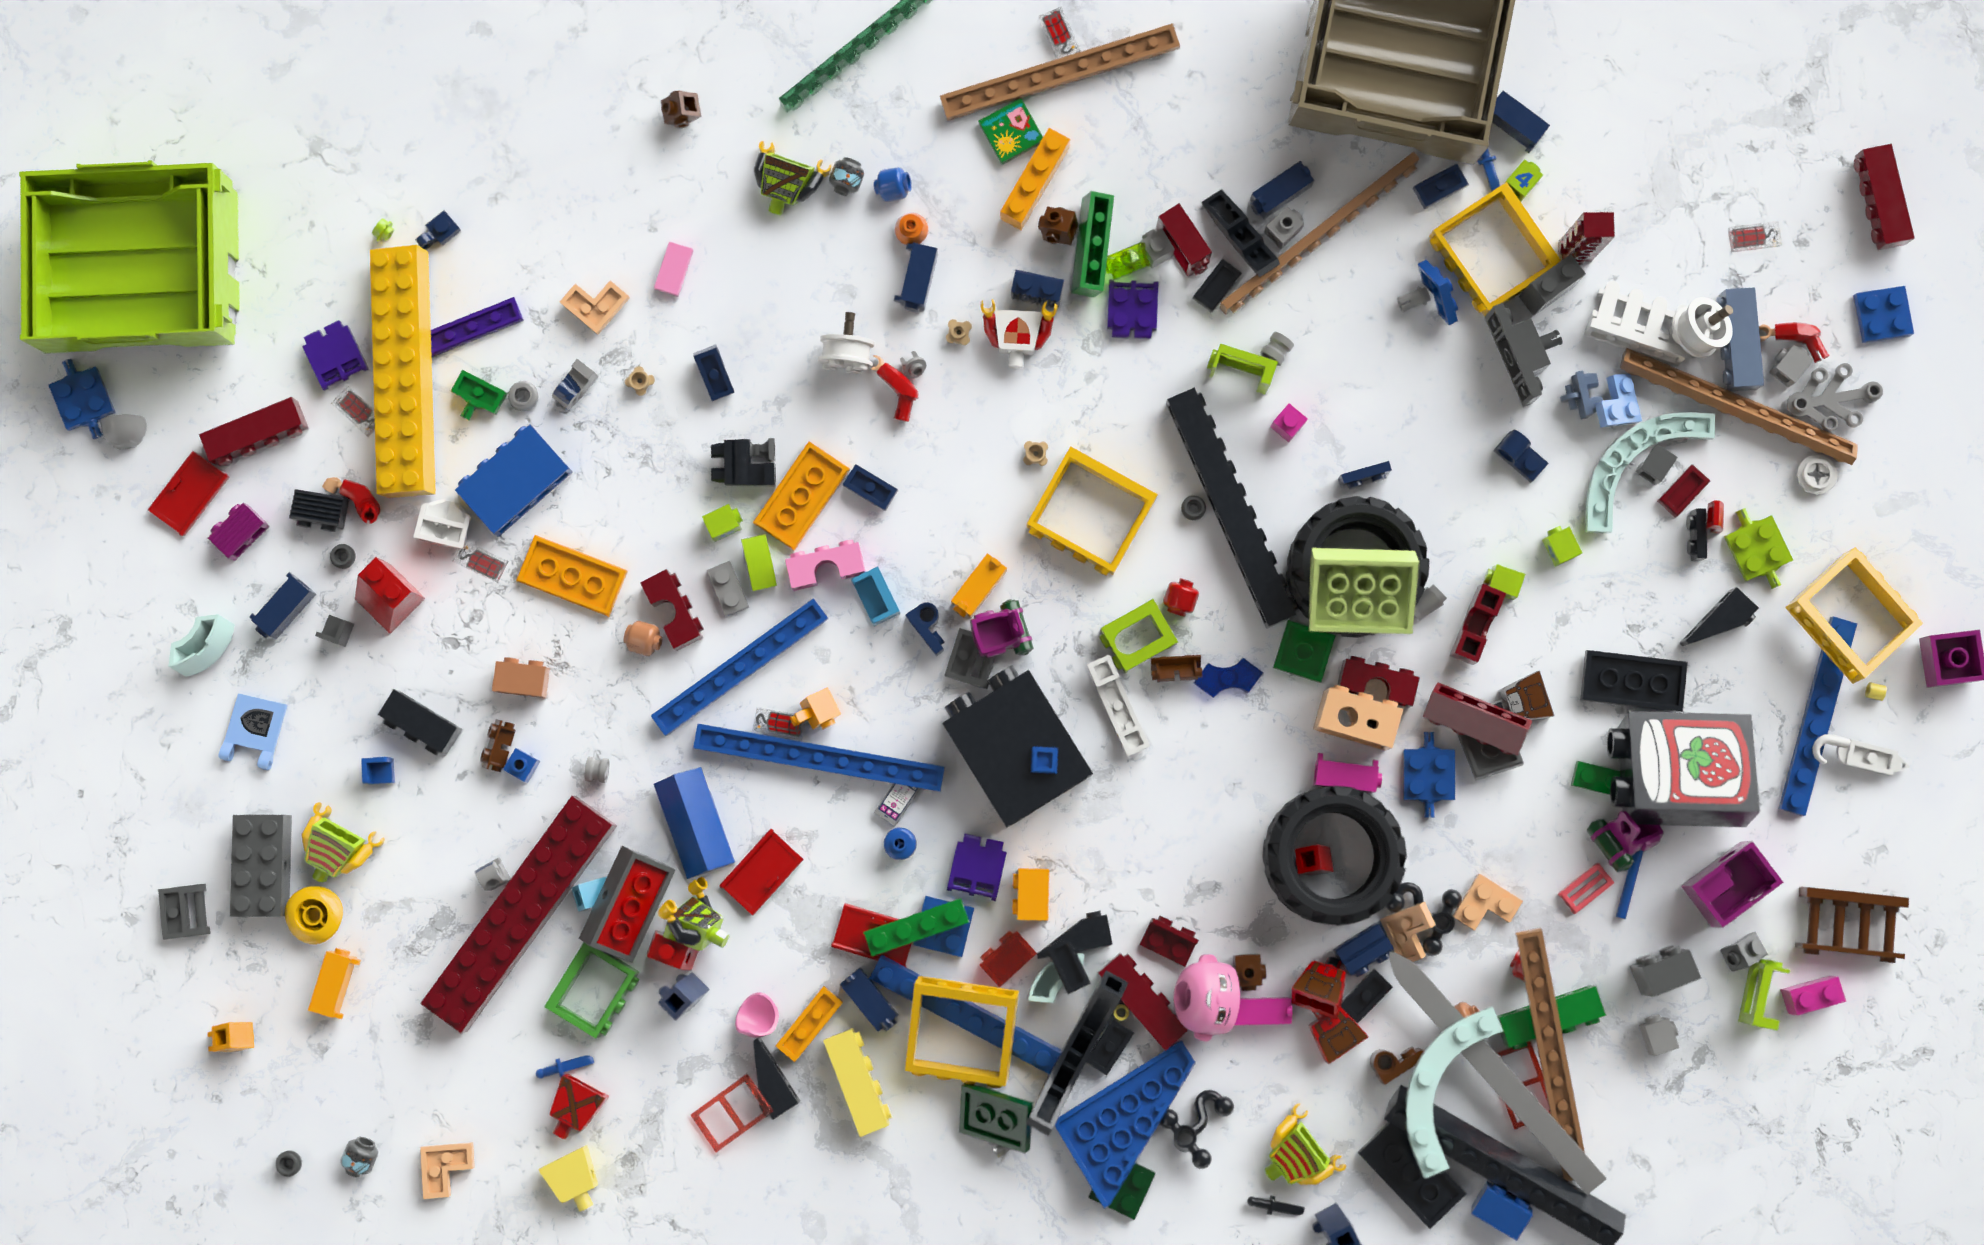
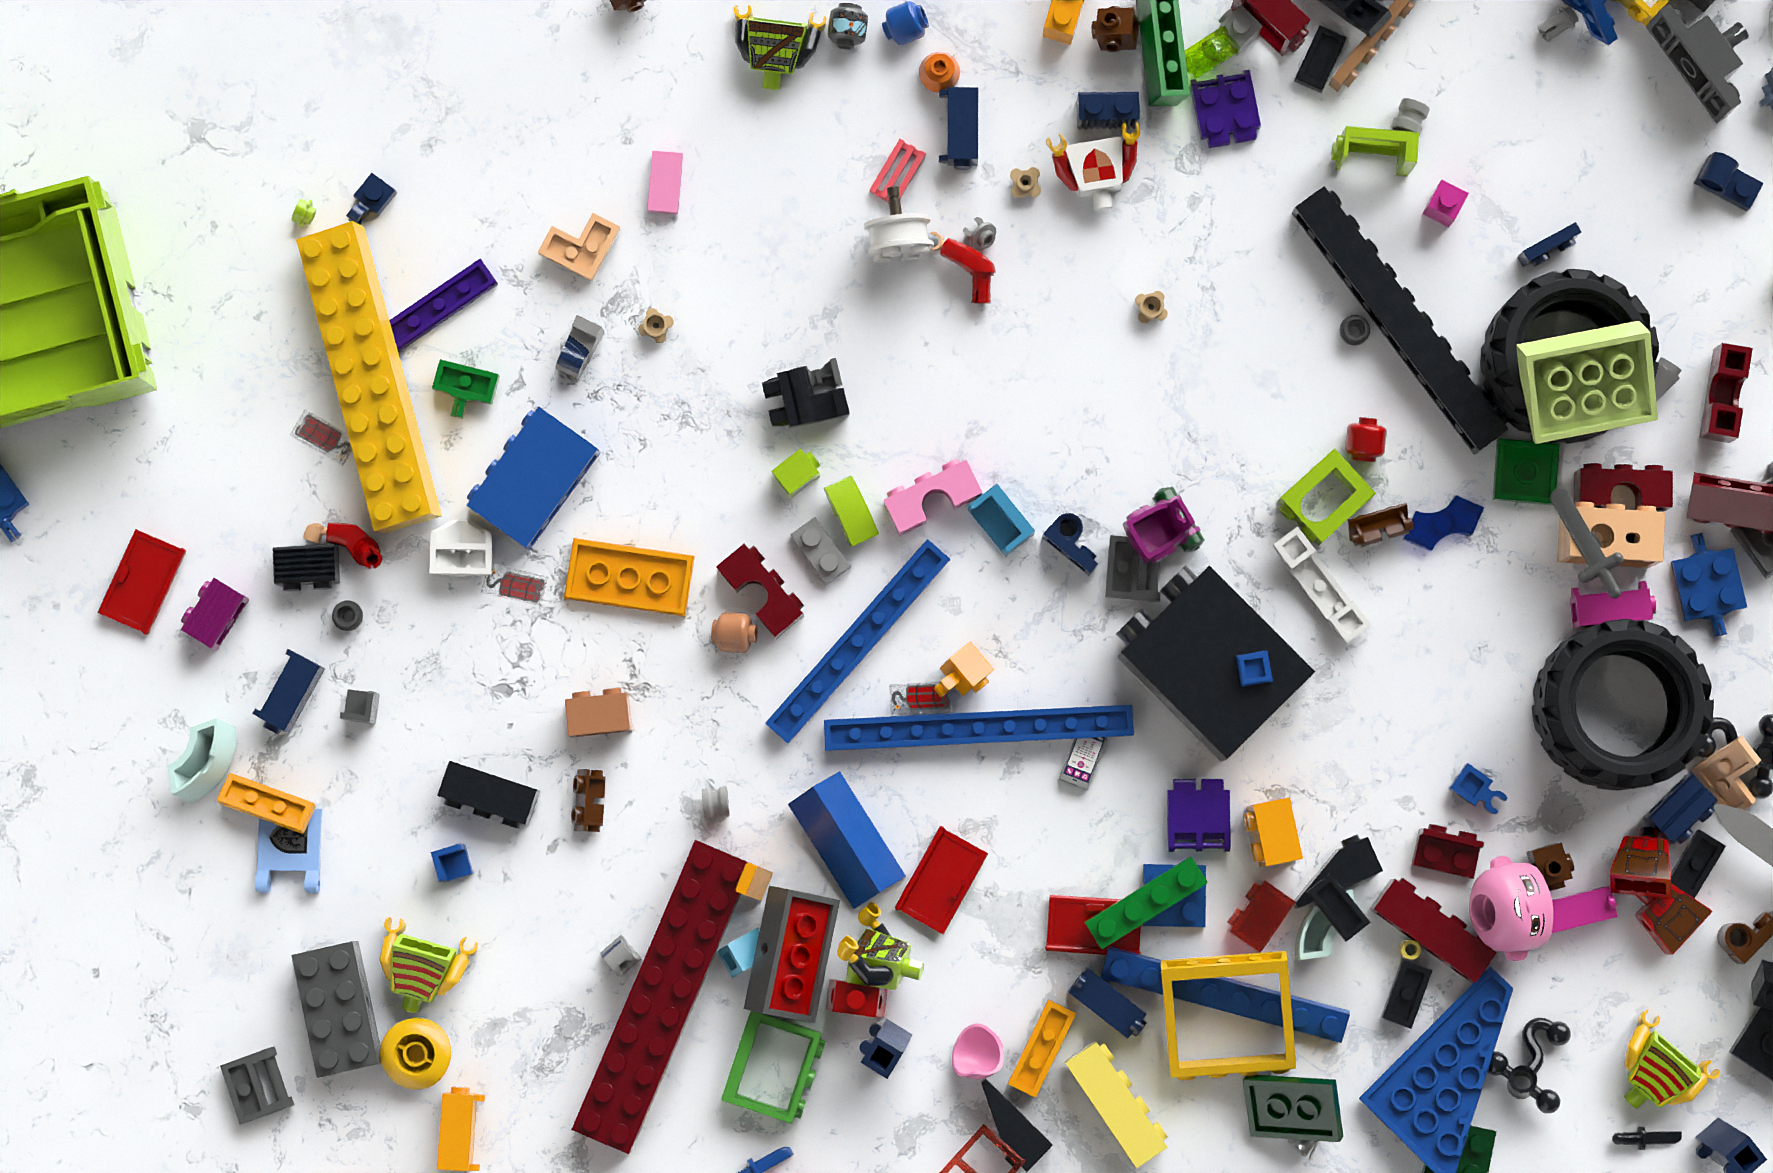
camera: 15 degrees left, 0 degrees up
(123, 430) = (45, 523): light grey helmet -> none
(243, 690) = (266, 803): none -> light orange plate
(254, 431) = (204, 490): dark red brick -> none
(334, 354) = (279, 375): dark purple plate -> none
(386, 594) = (412, 650): red slope -> none
(523, 385) = (516, 362): light grey piece -> none
(528, 769) = (630, 826): blue plate -> none
(610, 839) = (754, 881): none -> light orange tile
(713, 372) = (743, 295): dark blue plate -> none
(801, 496) = (882, 420): light orange tile -> none
(870, 487) = (963, 391): dark blue plate -> none
(873, 286) = (910, 150): none -> coral tile
(909, 843) = (1097, 819): blue head -> none
(978, 586) = (1121, 480): light orange brick -> none
(1076, 1052) = (1370, 1005): black arch -> none
(1108, 475) = (1249, 315): yellow window -> none
(1202, 893) = (1474, 786): none -> blue plate
(1314, 860) = (1599, 716): red brick -> none
(1334, 721) = (1598, 564): none -> dark grey sword
(1505, 580) = (1746, 333): lime brick -> none

